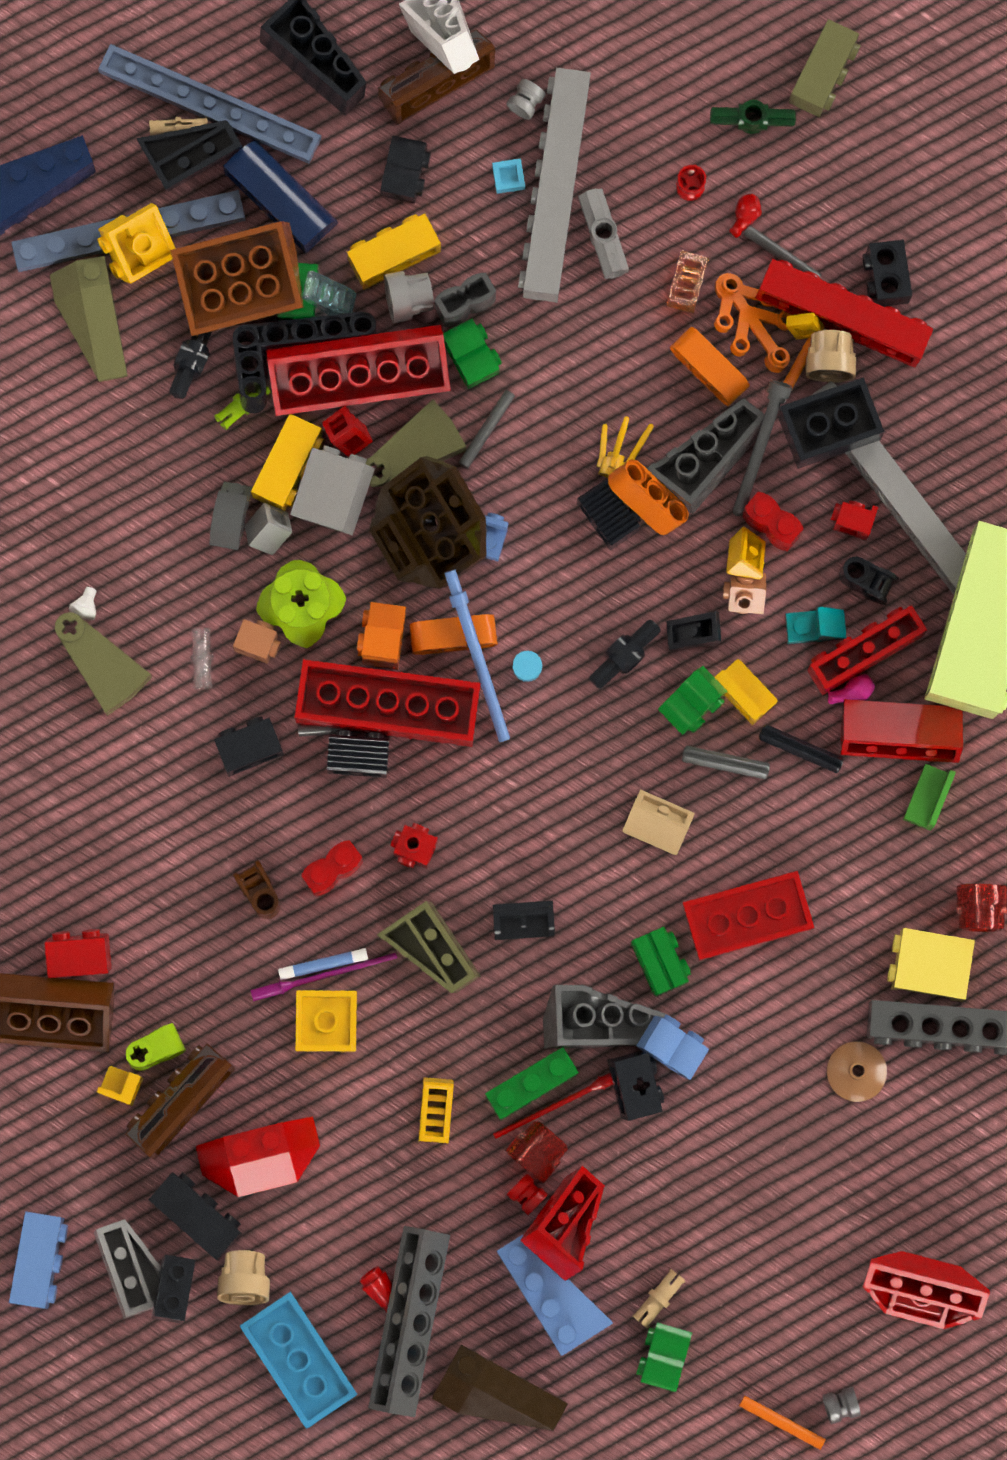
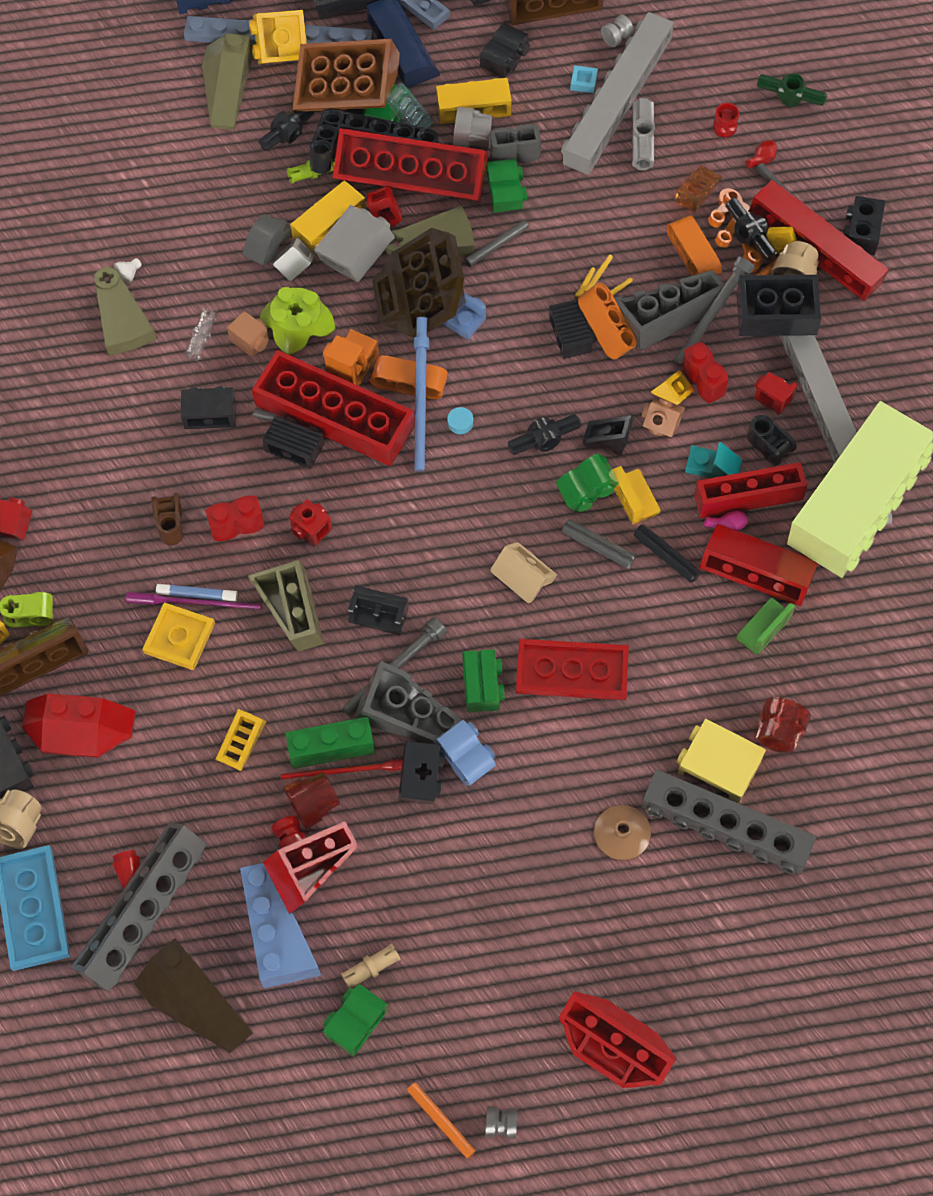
camera: 25 degrees right, 15 degrees down
(588, 924) = (433, 630): none -> dark grey piece
(766, 325) = (750, 229): none -> black axle
(825, 68) = (861, 73): olive brick -> none

